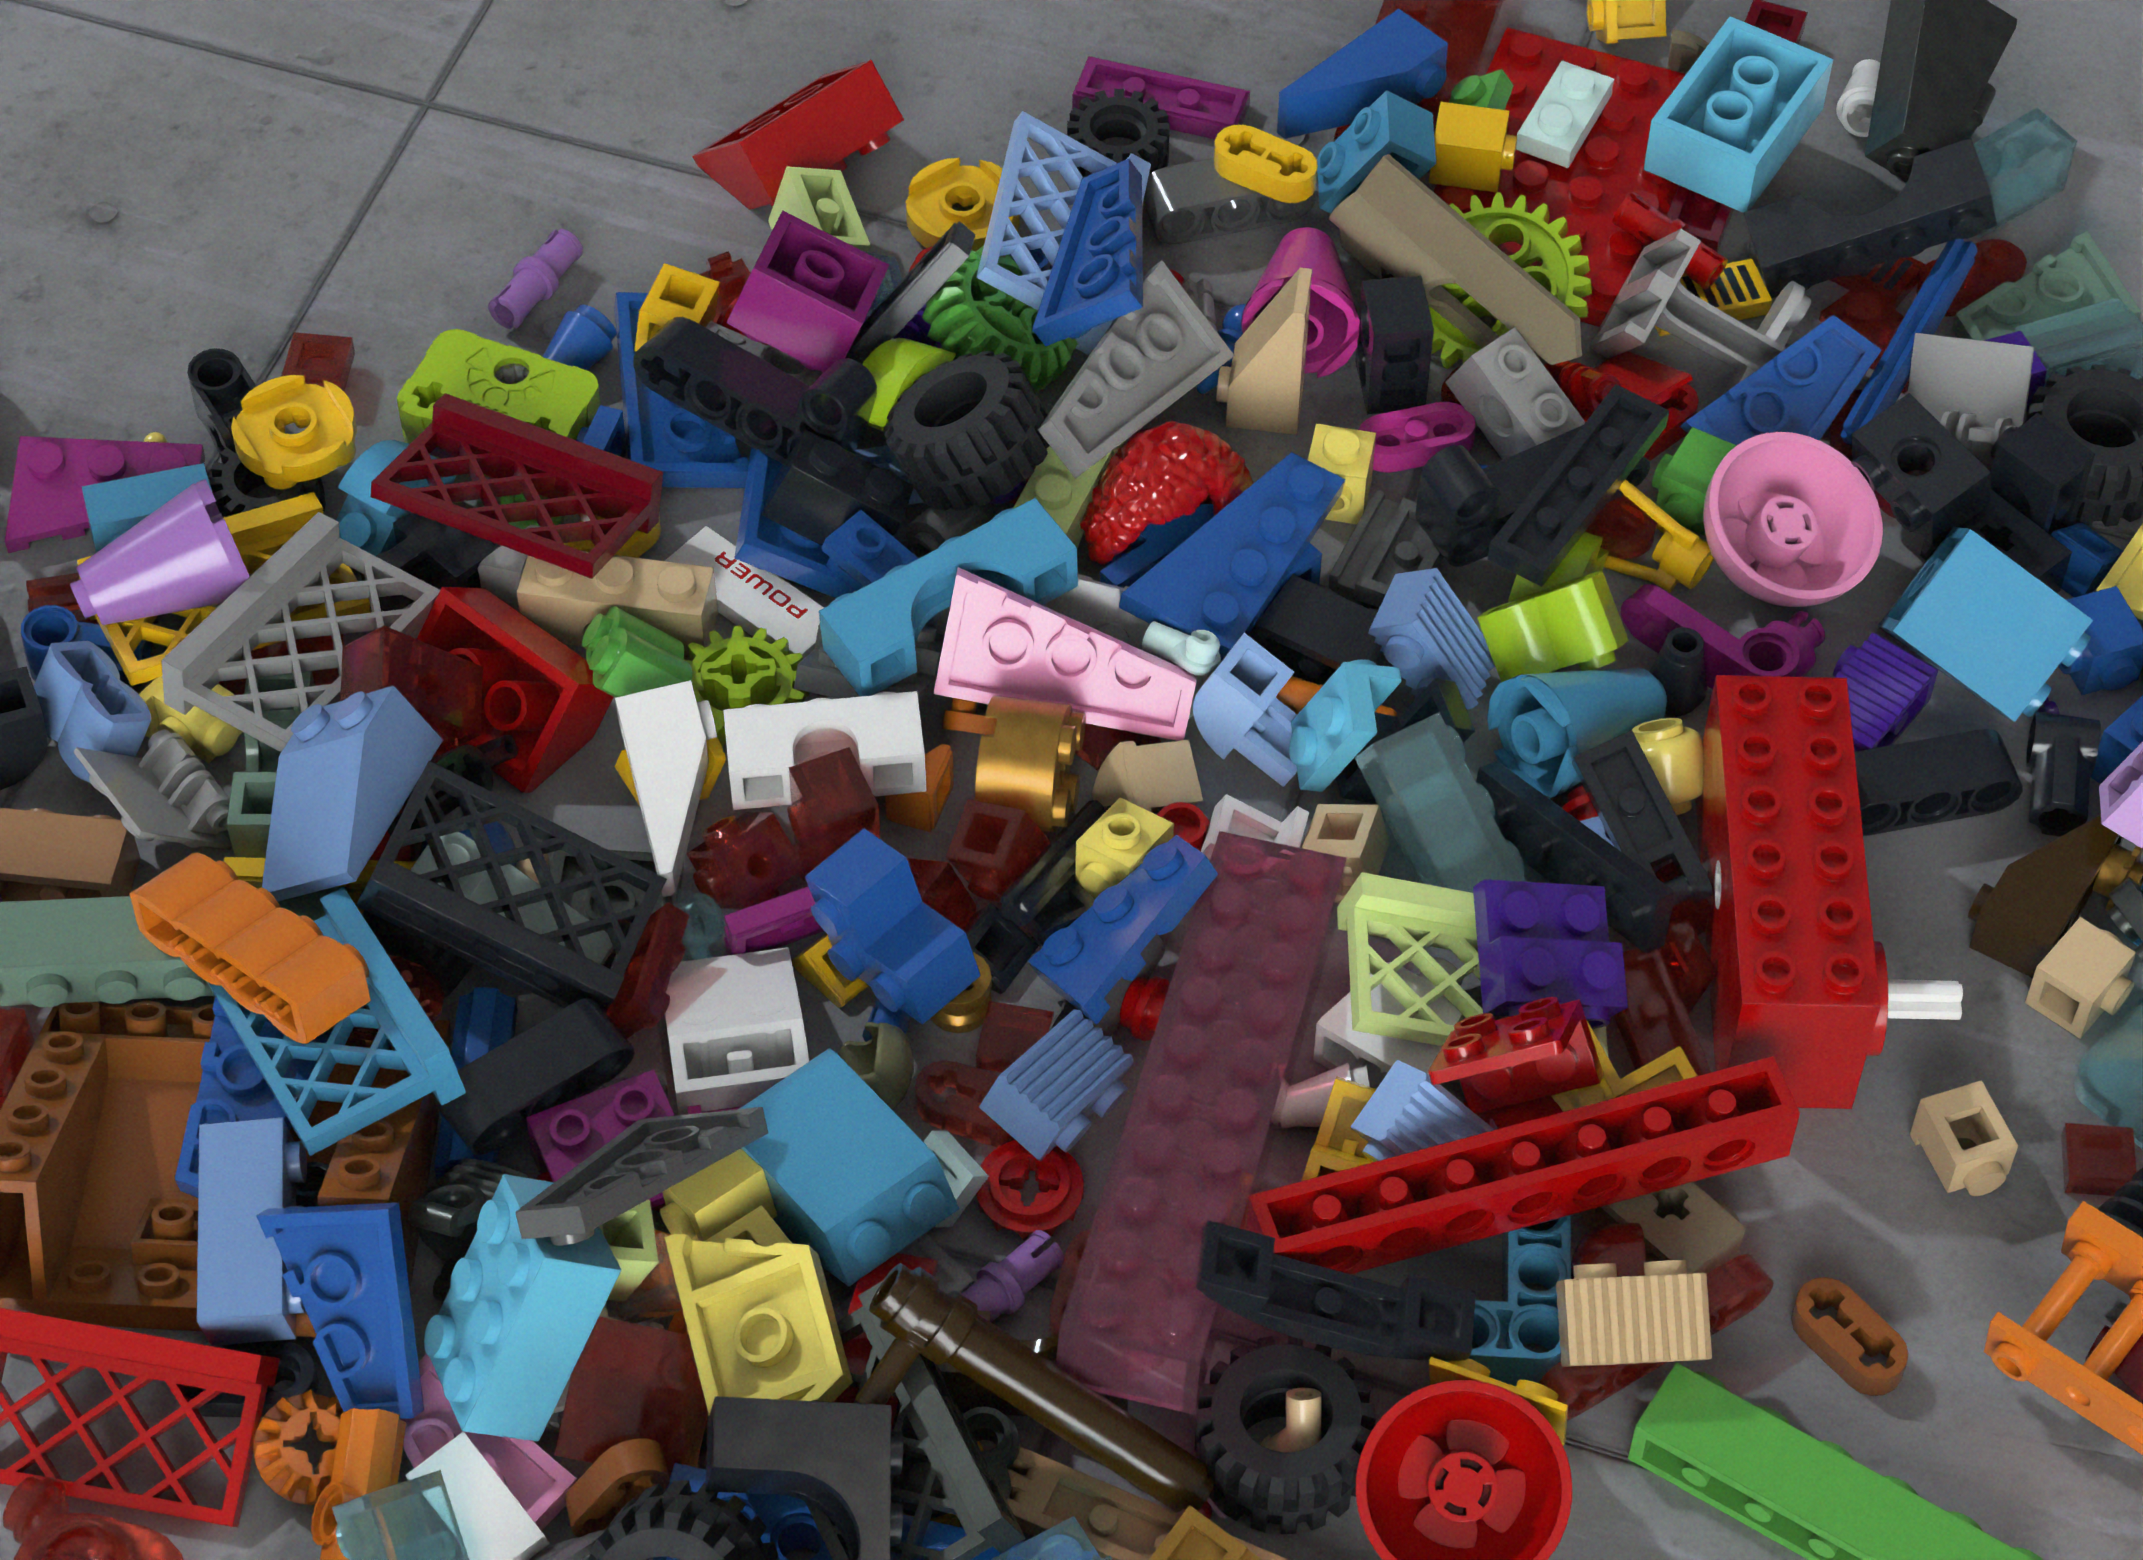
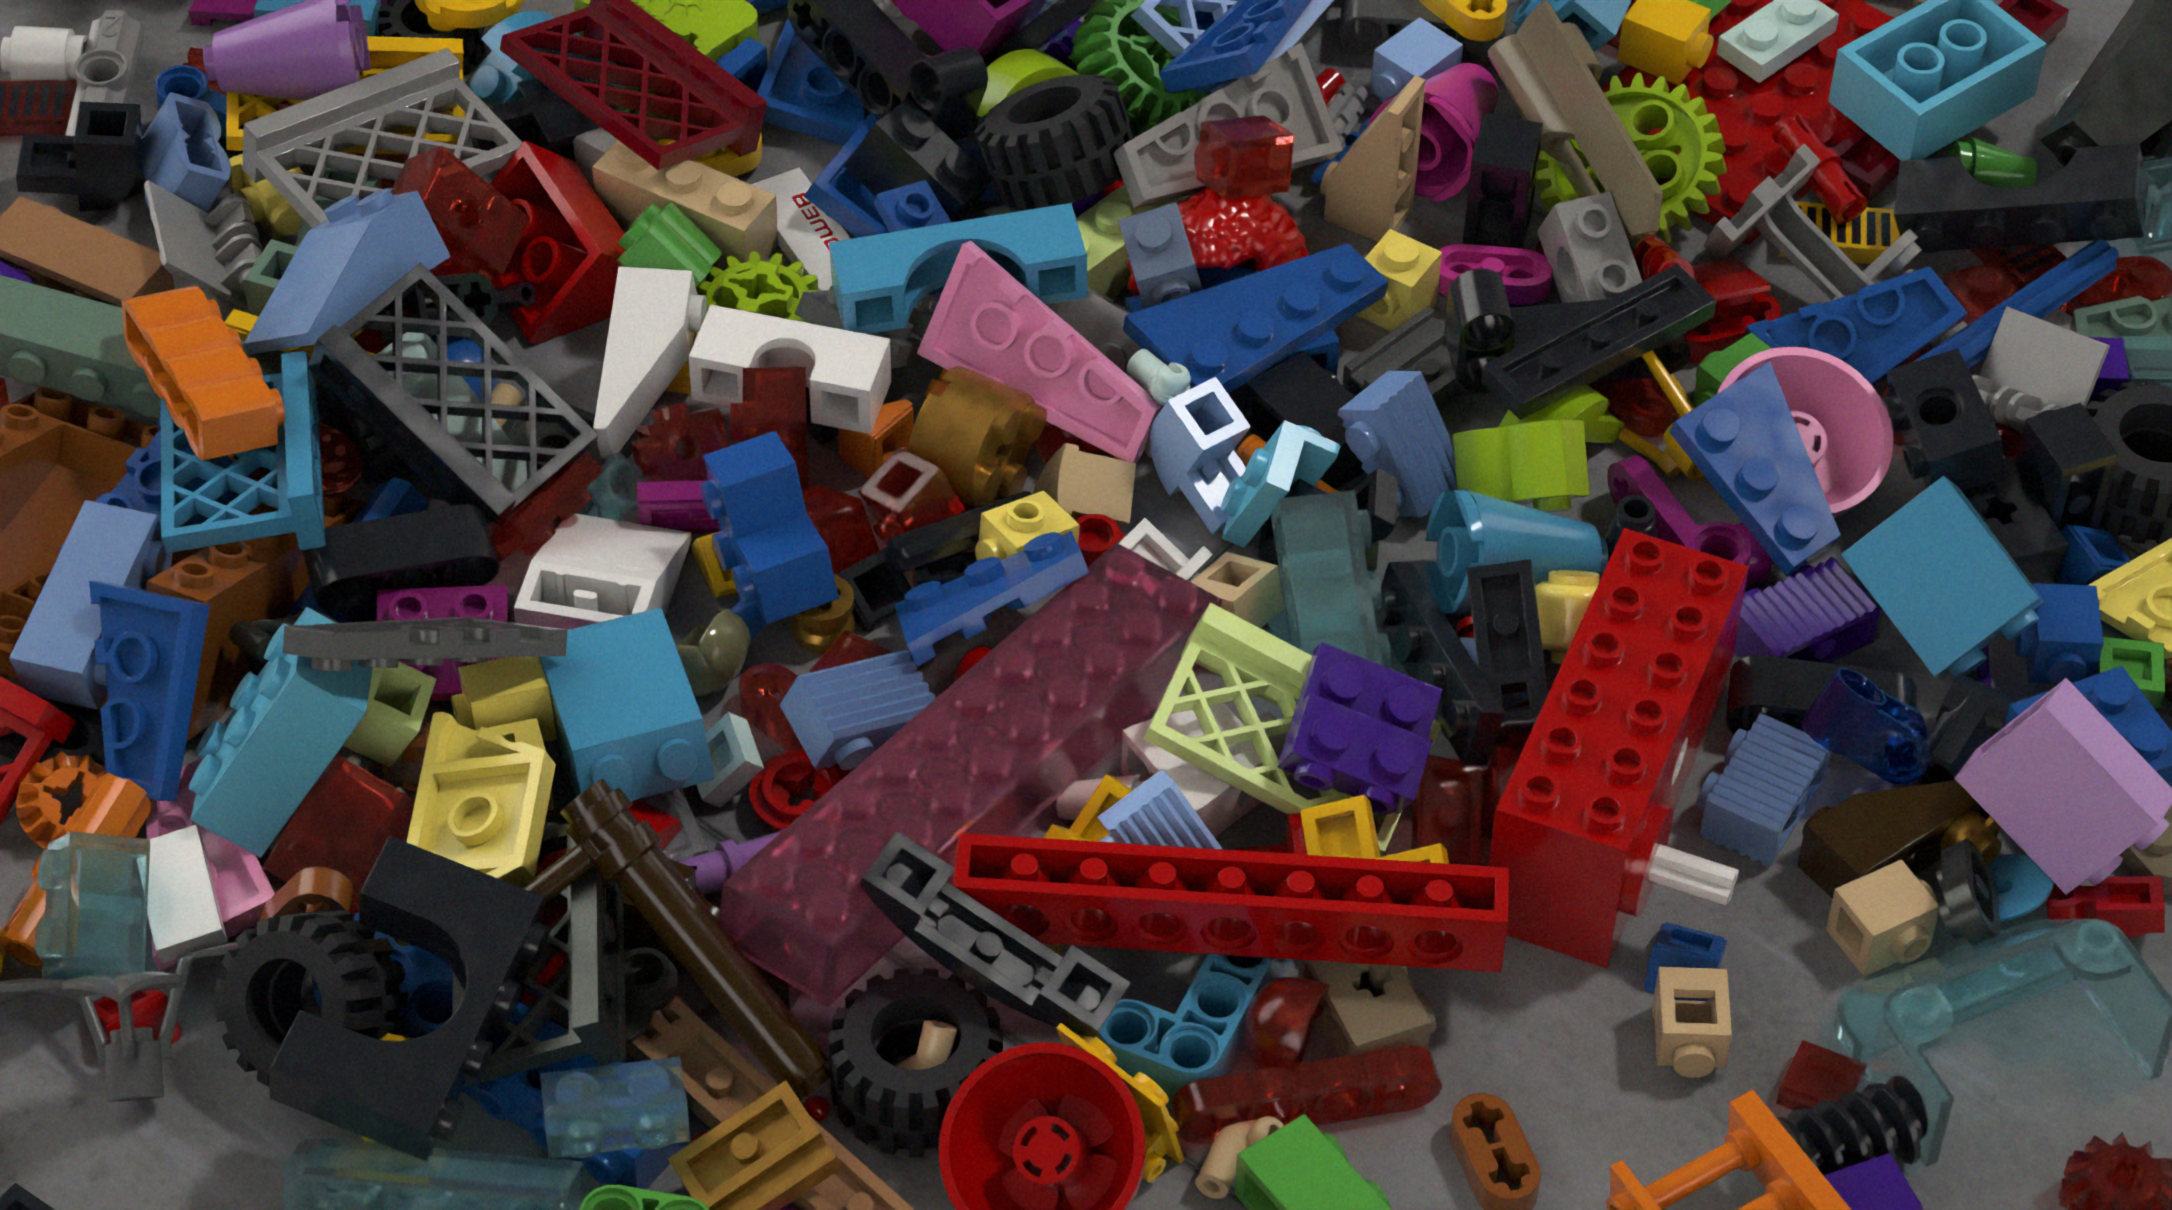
camera: 20 degrees right, 5 degrees down
(1129, 521) = (1160, 255): none -> sand blue bracket
(1168, 396) = (1244, 156): none -> clear red brick
(1243, 243) = (1412, 52): none -> light blue brick
(1519, 1056) = (1282, 803): red bracket -> none
(1615, 1414) = (1220, 1163): none -> tan arm
(1633, 1317) = (1273, 1054): tan brick -> none
(1779, 566) = (1761, 468): none -> blue wing
(1819, 187) = (1994, 164): none -> bright green cone
(1915, 882) = (1763, 788): none -> medium blue brick
(1917, 1073) = (1683, 948): none -> blue slope
(1994, 796) = (1860, 722): none -> clear blue piece

